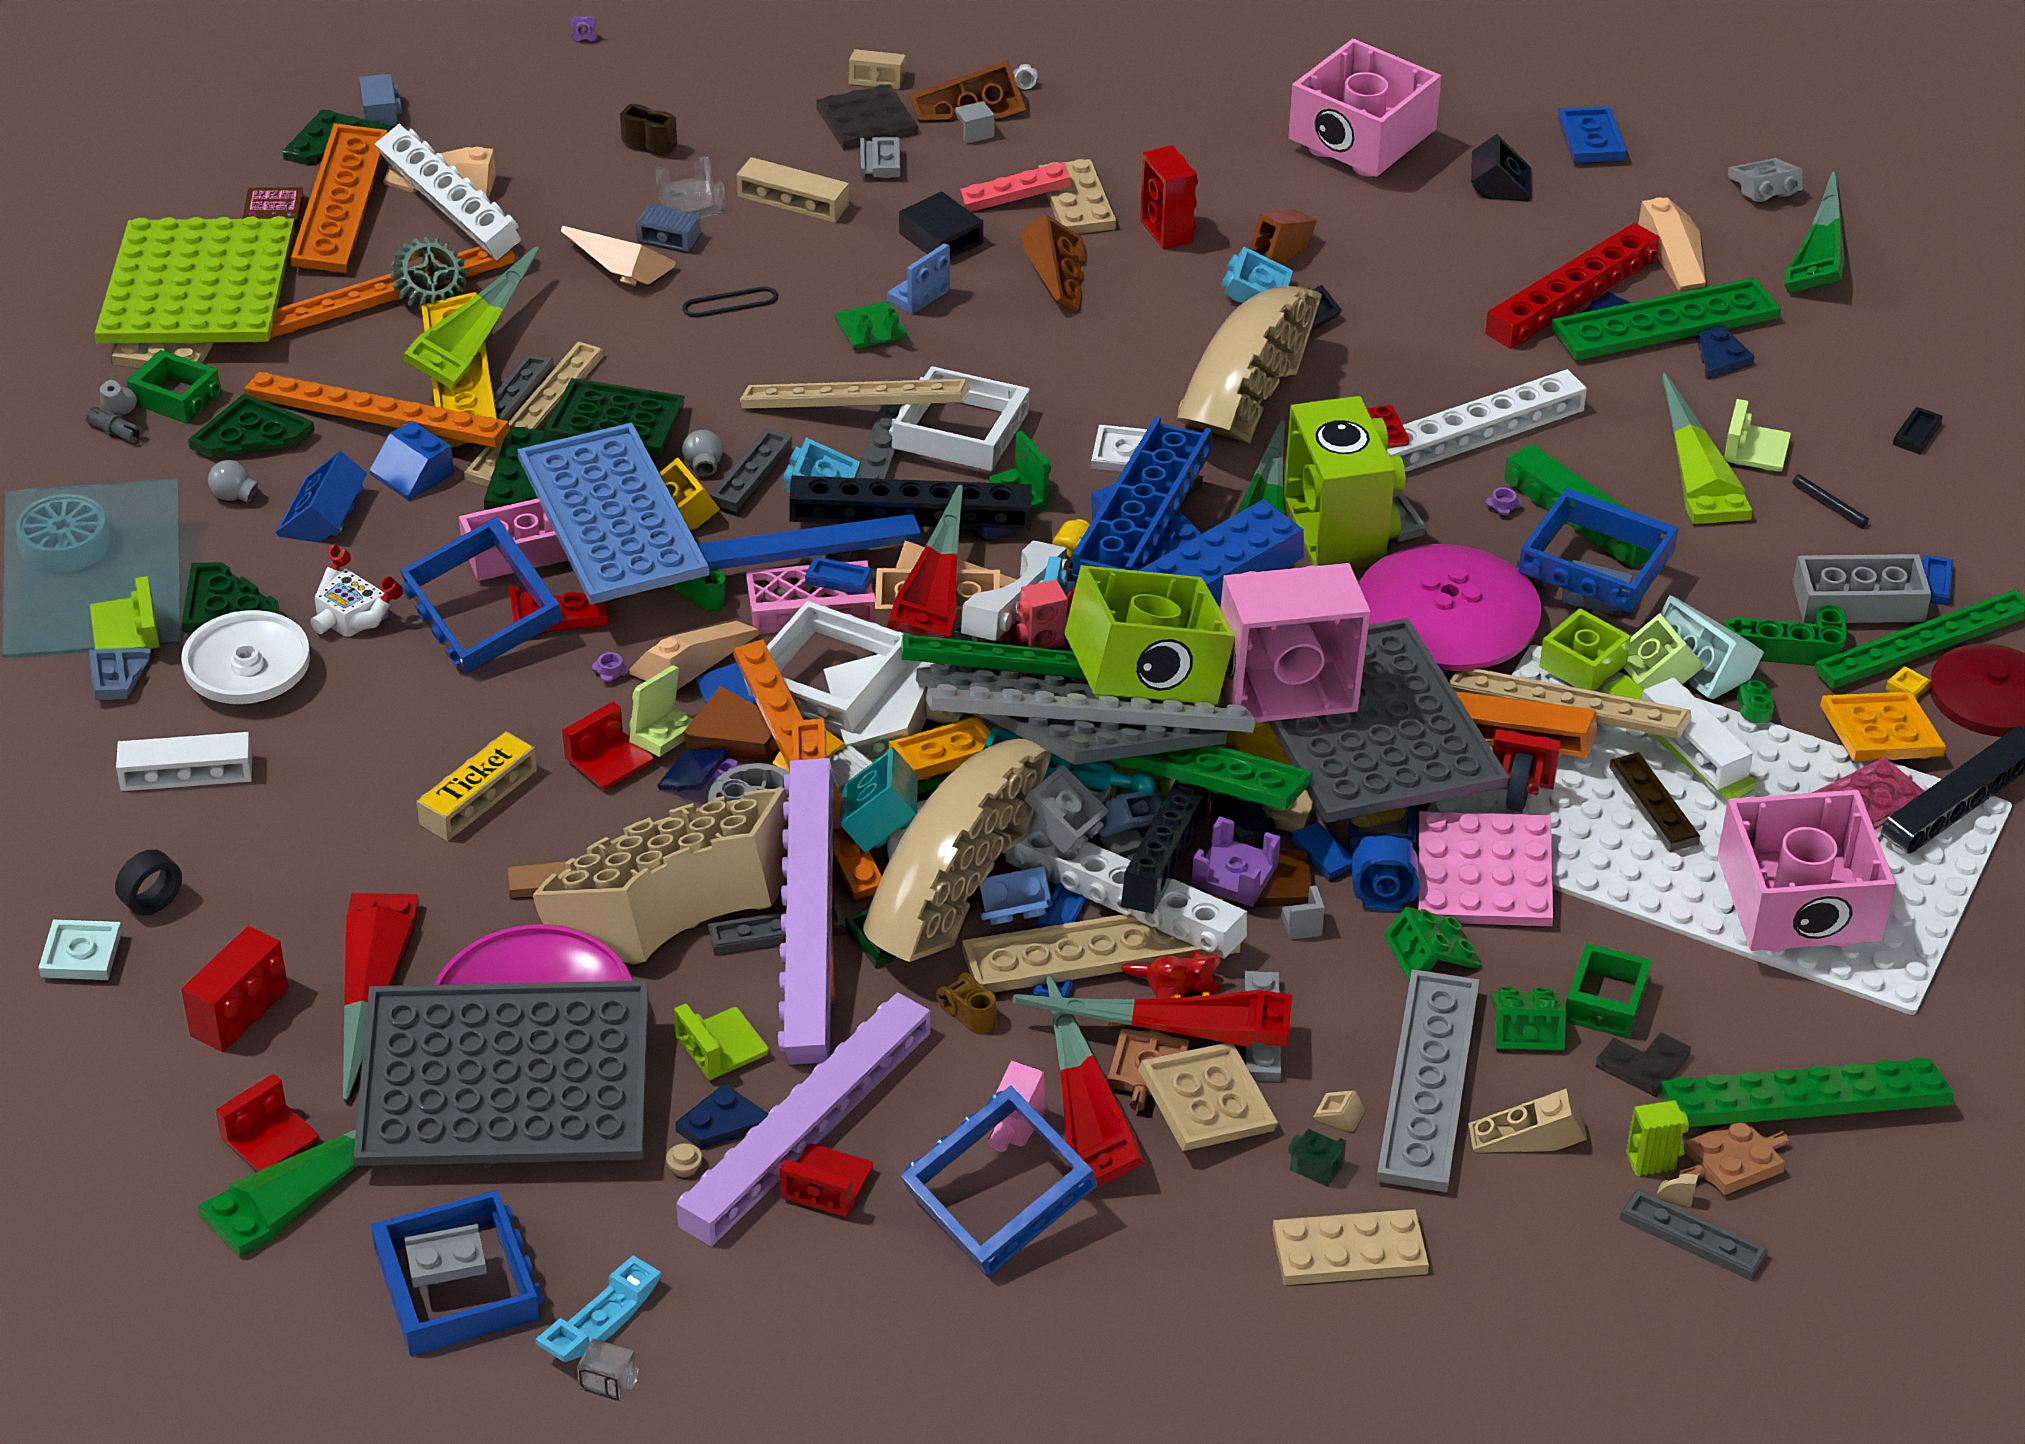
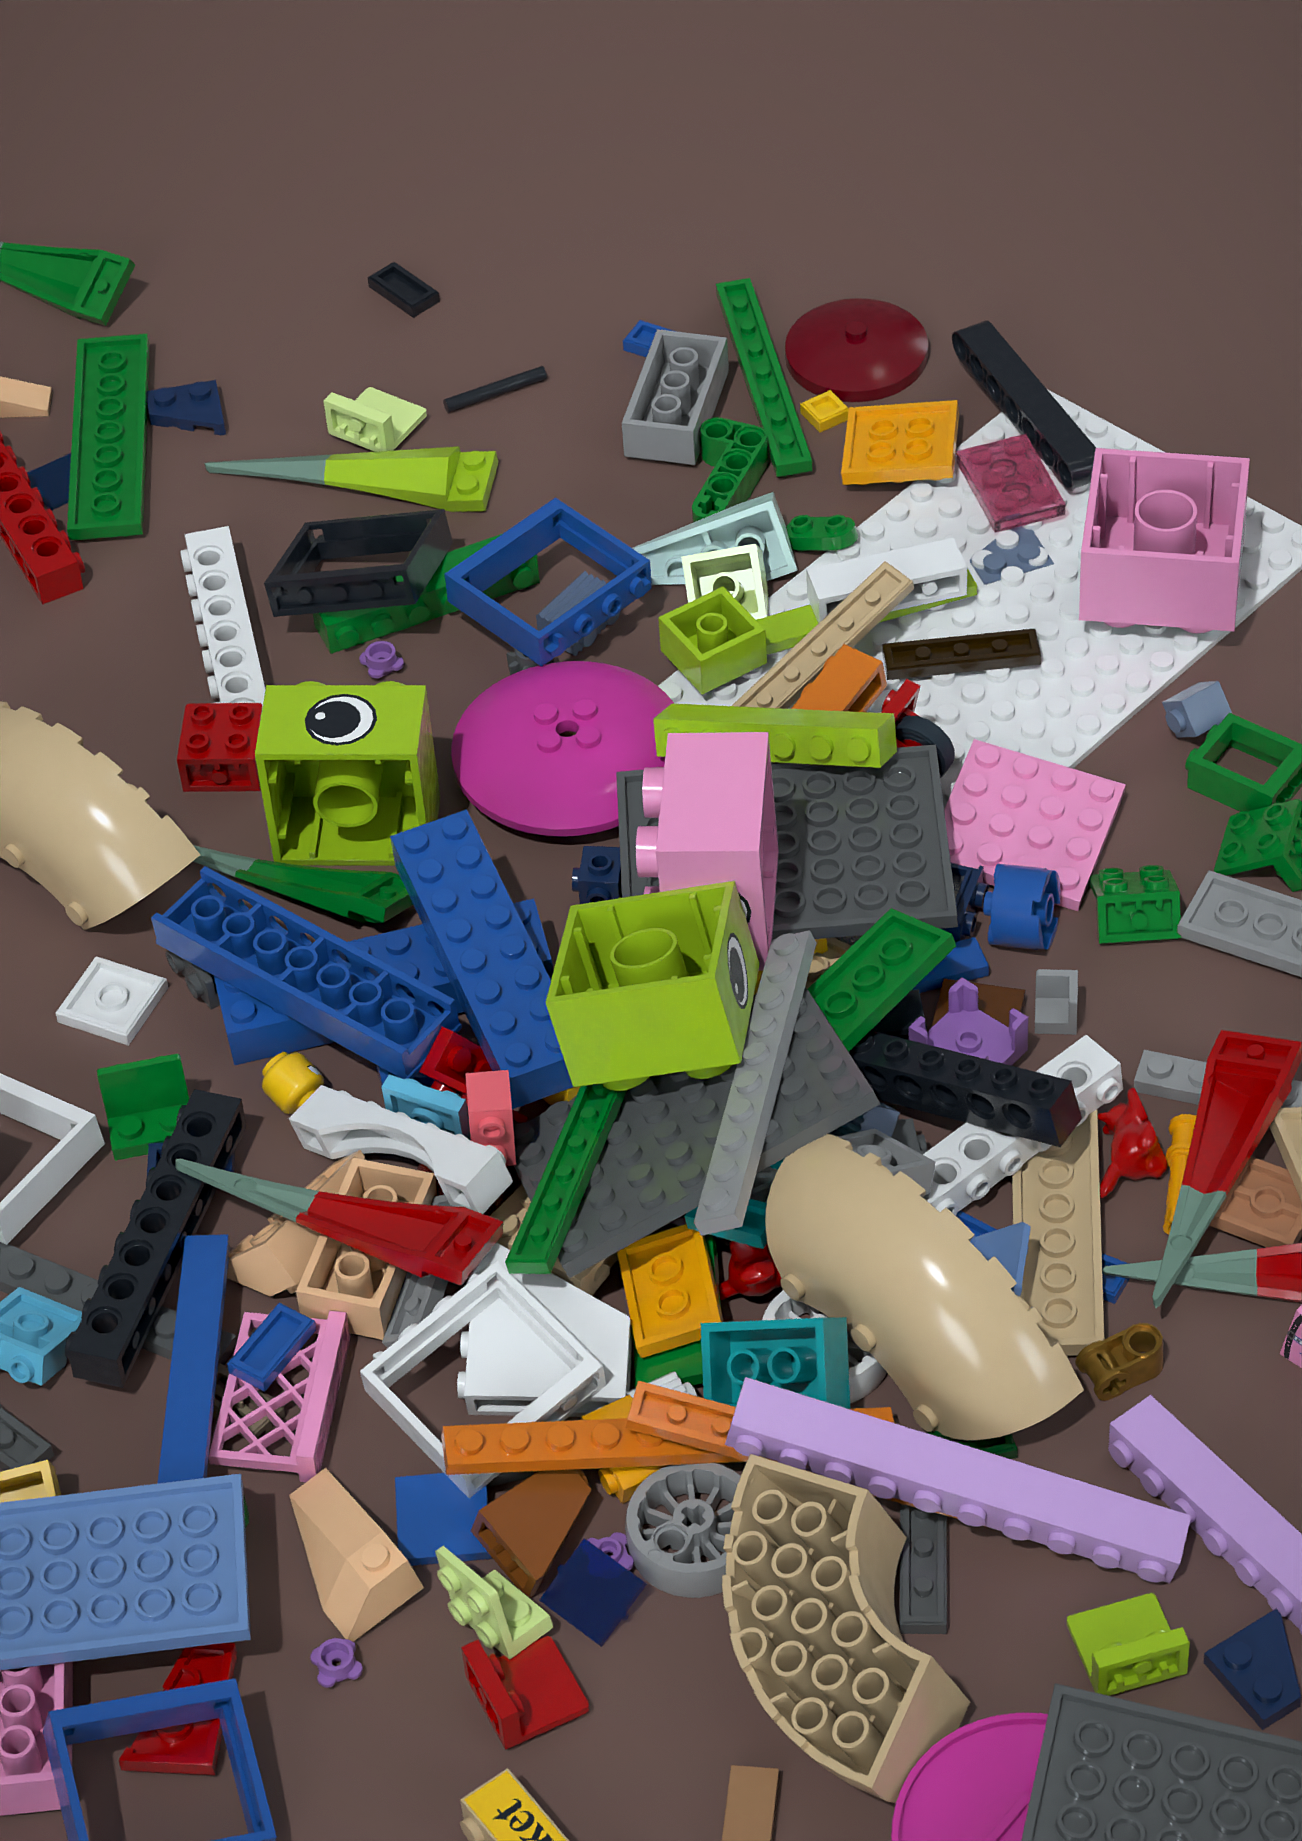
camera: 70 degrees left, 5 degrees up
(1472, 686) = (794, 734): none -> lime brick
(1532, 427) = (298, 590): none -> black window
(1655, 944) = (1196, 709): none -> sand blue brick

